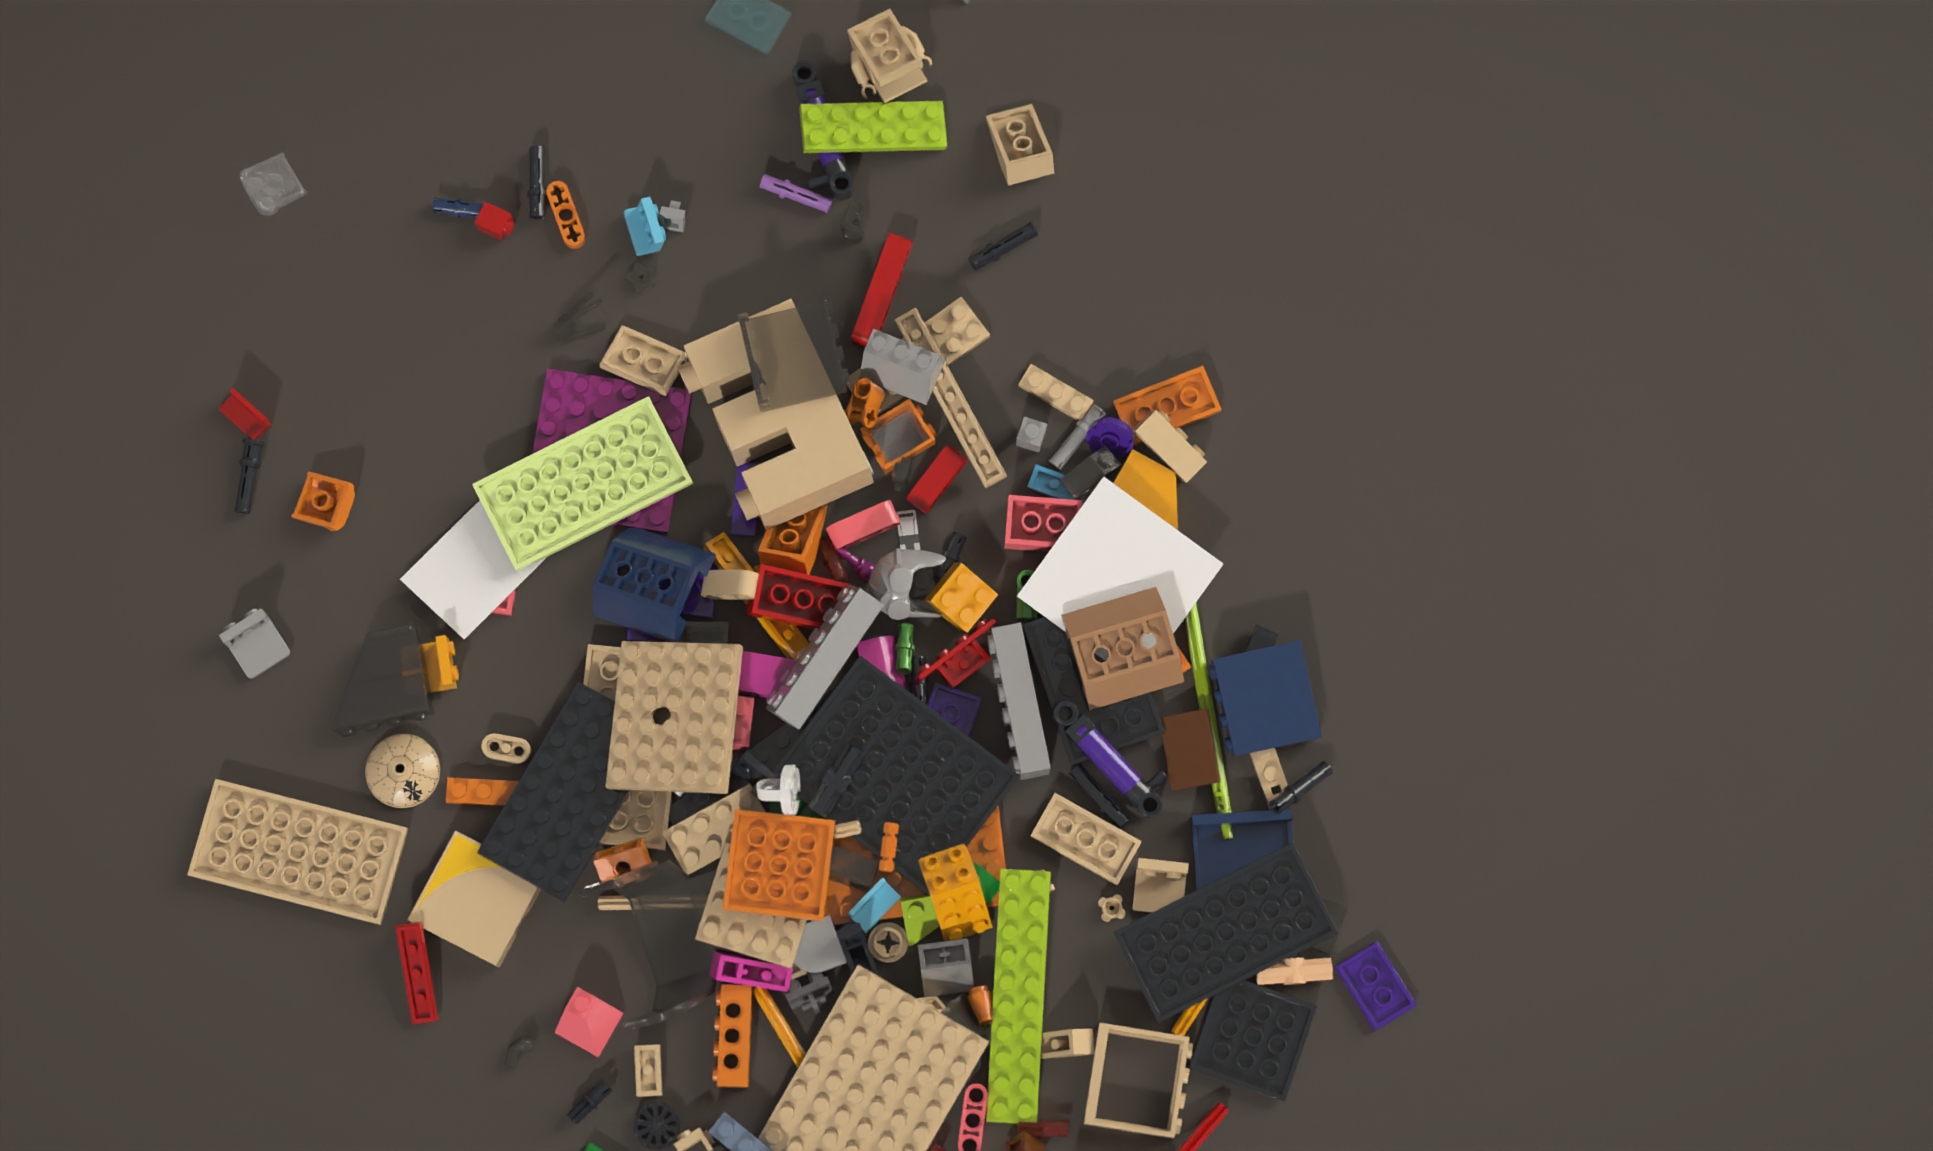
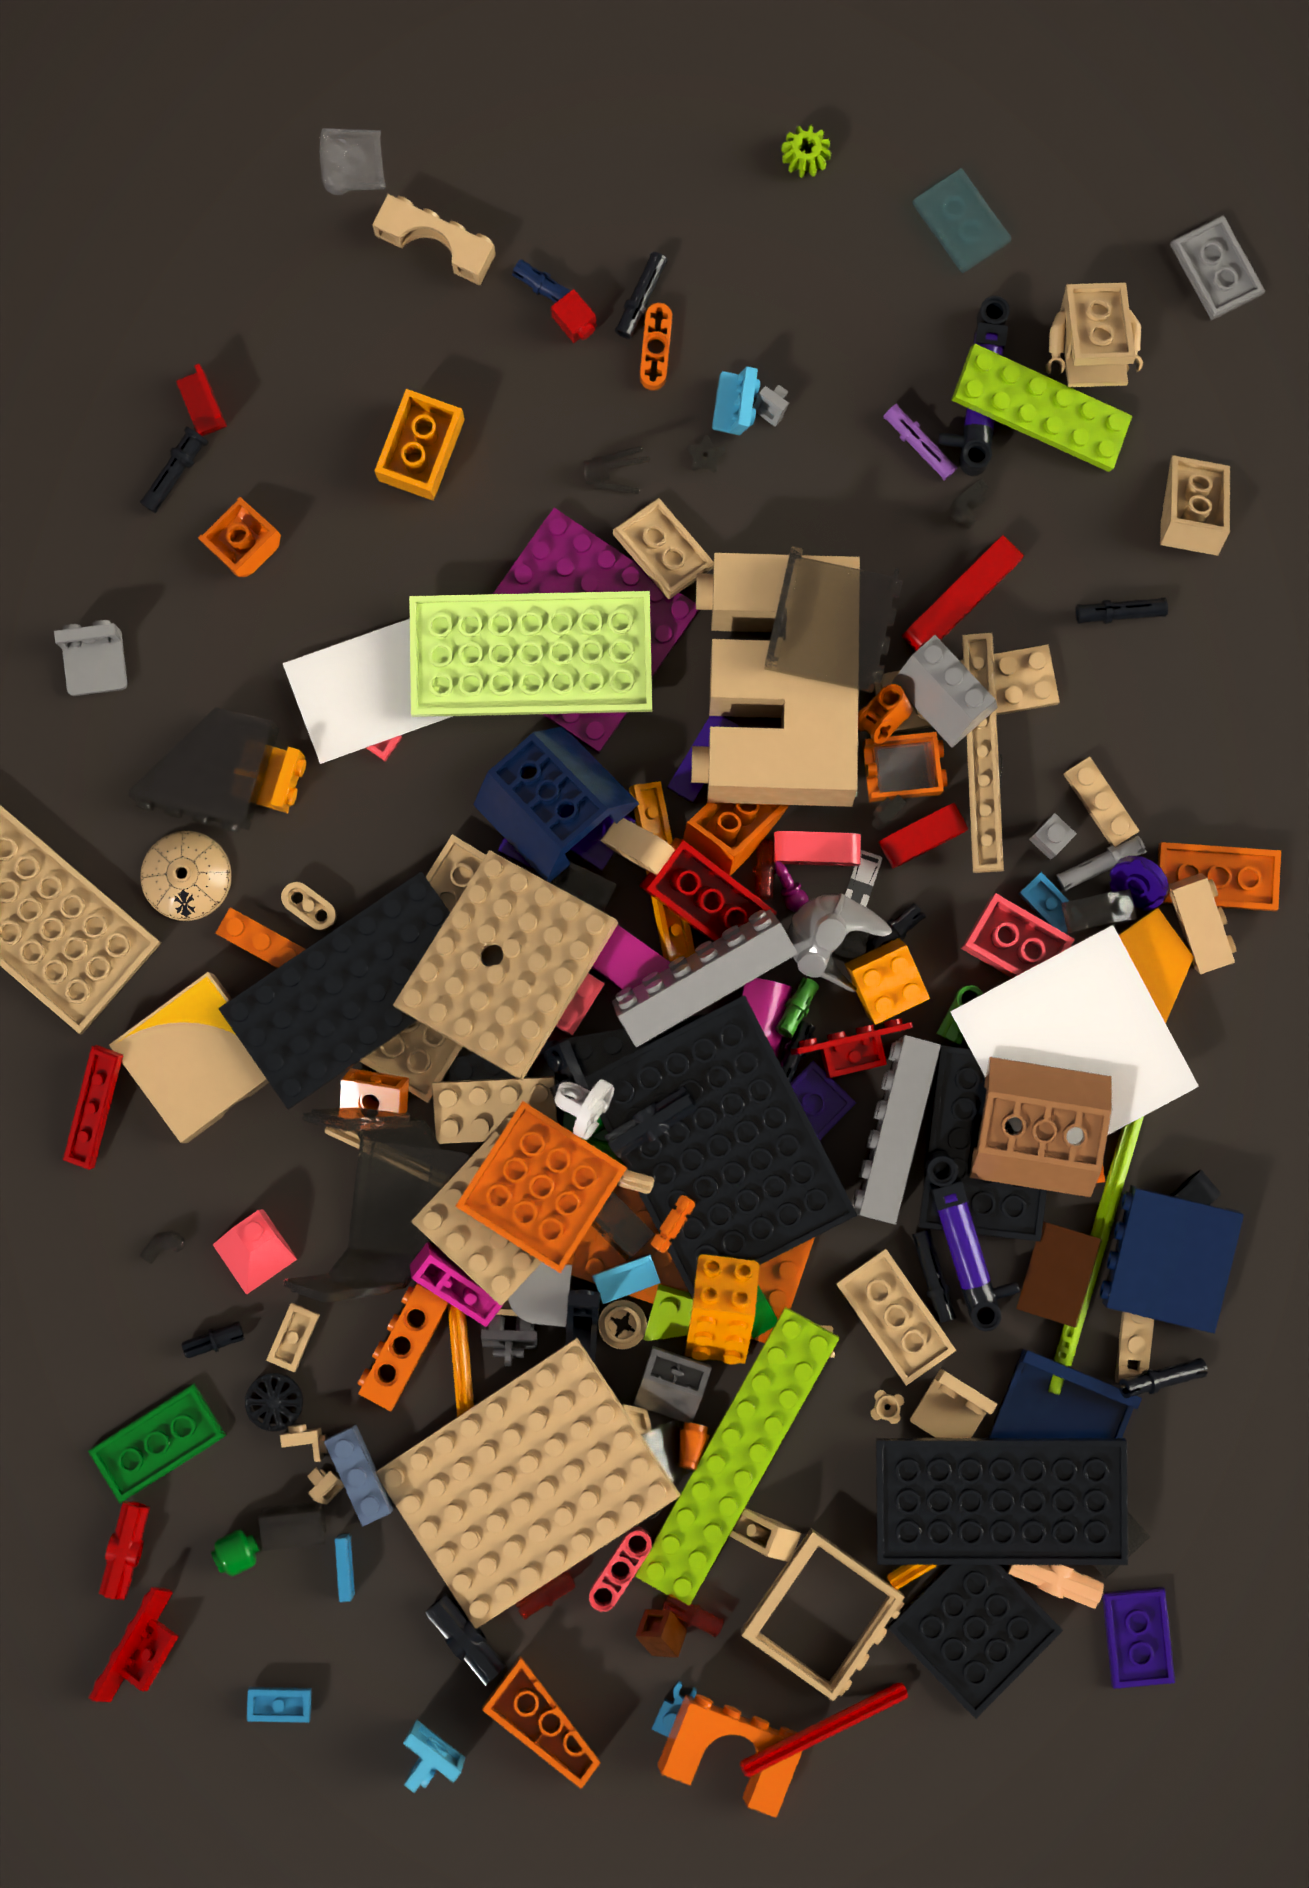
camera: 25 degrees right, 5 degrees up
(331, 212) = (402, 222): none -> tan arch
(425, 369) = (419, 444): none -> light orange brick
(608, 11) = (810, 141): none -> lime gear

